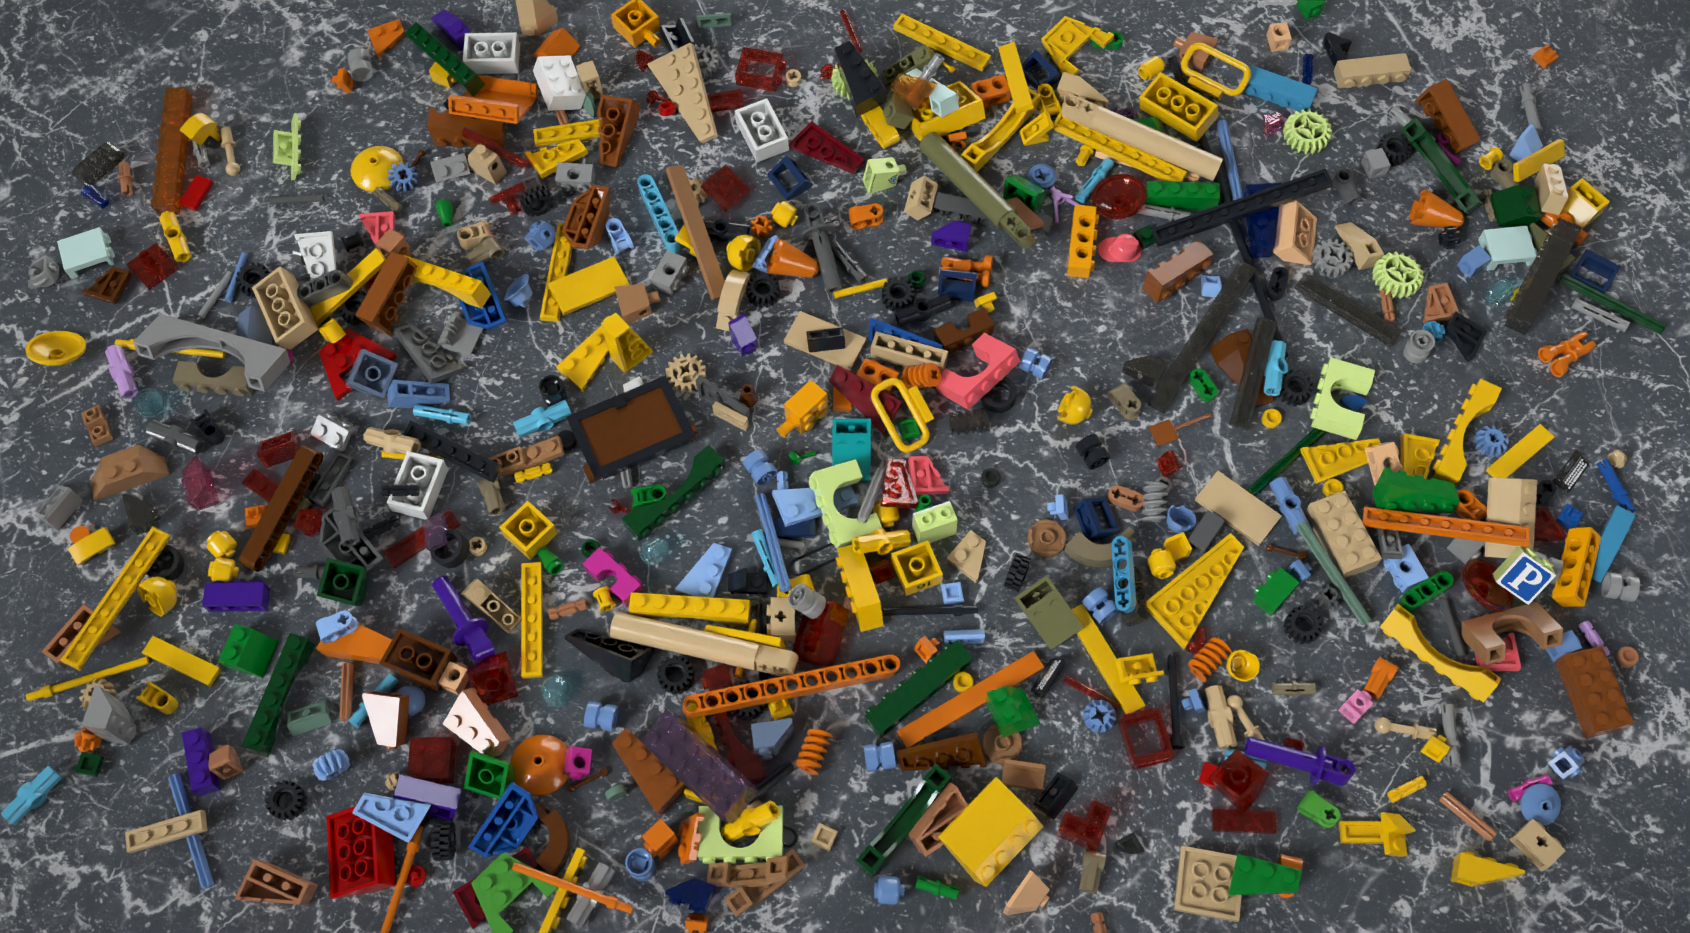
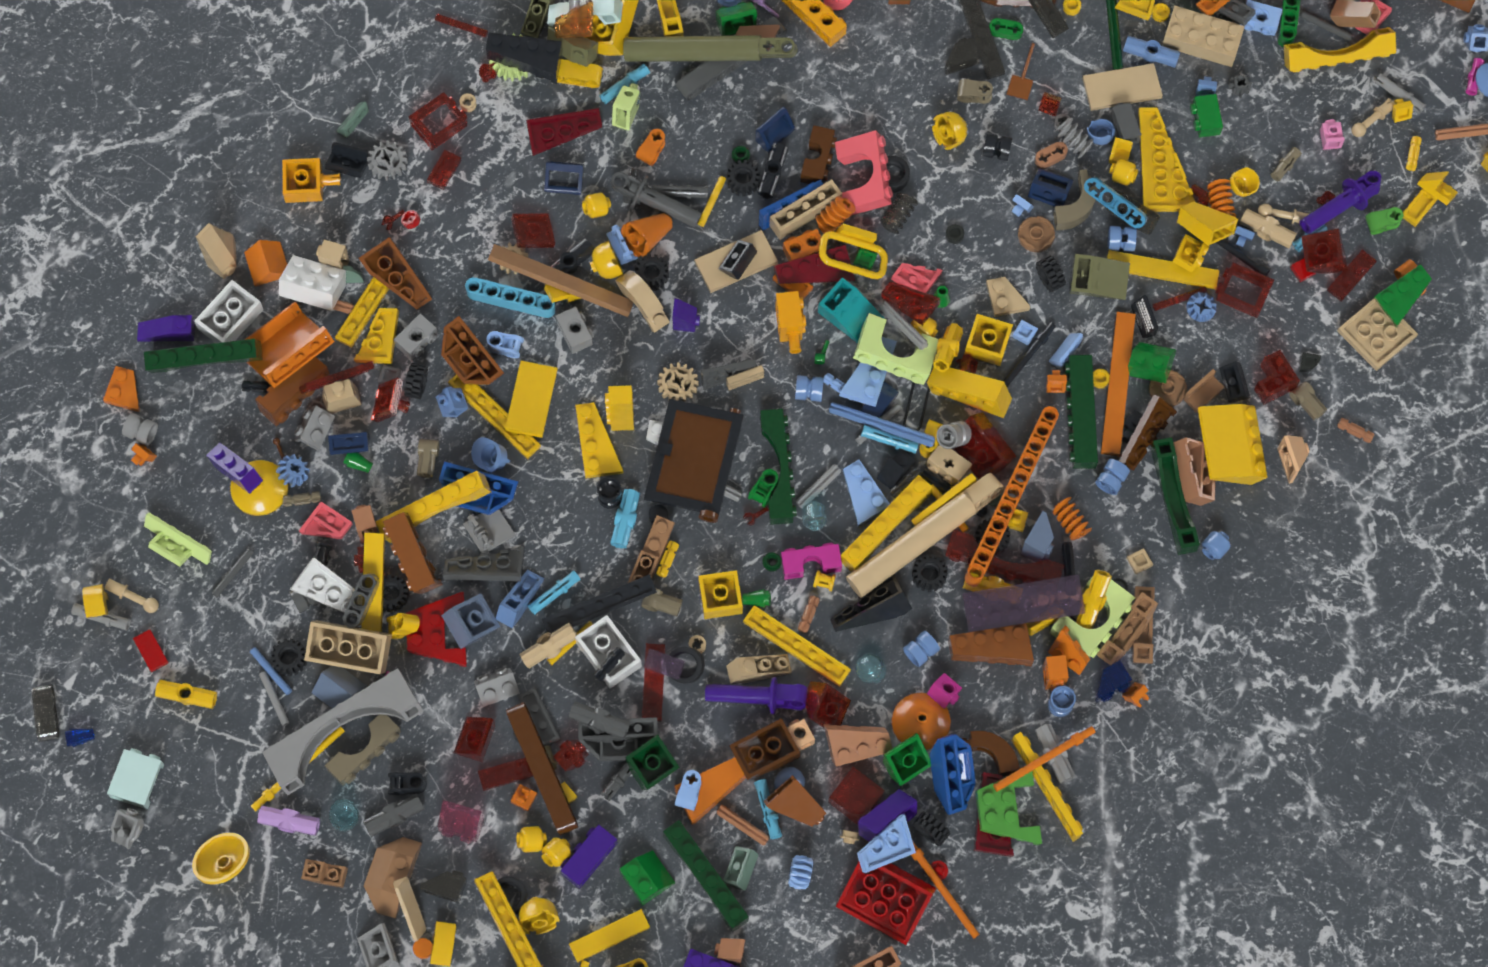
camera: 55 degrees left, 5 degrees up
(98, 499) = (410, 908): none -> tan slope
(109, 286) = (187, 780): reddish brown wing -> none
(125, 178) = (82, 700): nougat axle -> none
(152, 266) = (197, 733): clear red tile -> none
(172, 151) = (88, 641): clear orange brick -> none
(280, 789) = (793, 916): black tyre -> none
(371, 137) = (234, 467): none -> brick
(382, 527) = (619, 701): black axle -> none
(440, 76) = (212, 371): yellow brick -> none
(451, 194) = (349, 443): none -> dark blue tile
(475, 235) = (404, 450): tan piece -> none
(603, 772) = (964, 680): reddish brown hinge -> none
(615, 793) = (990, 681): sand green tile -> none
(635, 301) = (578, 375): medium nougat torso -> none
(643, 59) = (341, 203): clear red tile -> none
(683, 82) = (397, 187): tan wing -> none
(684, 536) = (818, 486): none -> light grey axle
(748, 396) = (739, 352): reddish brown cone -> none
(761, 226) = (594, 235): orange gear -> none
(762, 130) = (502, 163): white brick -> none
(910, 163) = (632, 77): none -> medium azure pin
(921, 198) = (674, 94): tan brick -> none
(934, 523) = (964, 300): yellowish green piece -> none
(937, 887) = (1239, 512): green pin -> none
(953, 236) = (728, 97): dark purple slope -> none
(957, 138) = (638, 27): orange tile -> none
(984, 267) = (762, 111): orange piece -> none
(986, 301) = (806, 121): yellow tile -> none
(1029, 361) = (883, 126): medium blue wheel -> none
(1174, 661) = (1206, 223): none -> yellow slope
(1298, 635) = (1248, 109): black tyre -> none
(1302, 555) = (1193, 76): reddish brown hinge -> none
(1333, 573) = (1226, 66): sand green axle -> none
(1382, 673) = (1322, 98): orange piece -> none

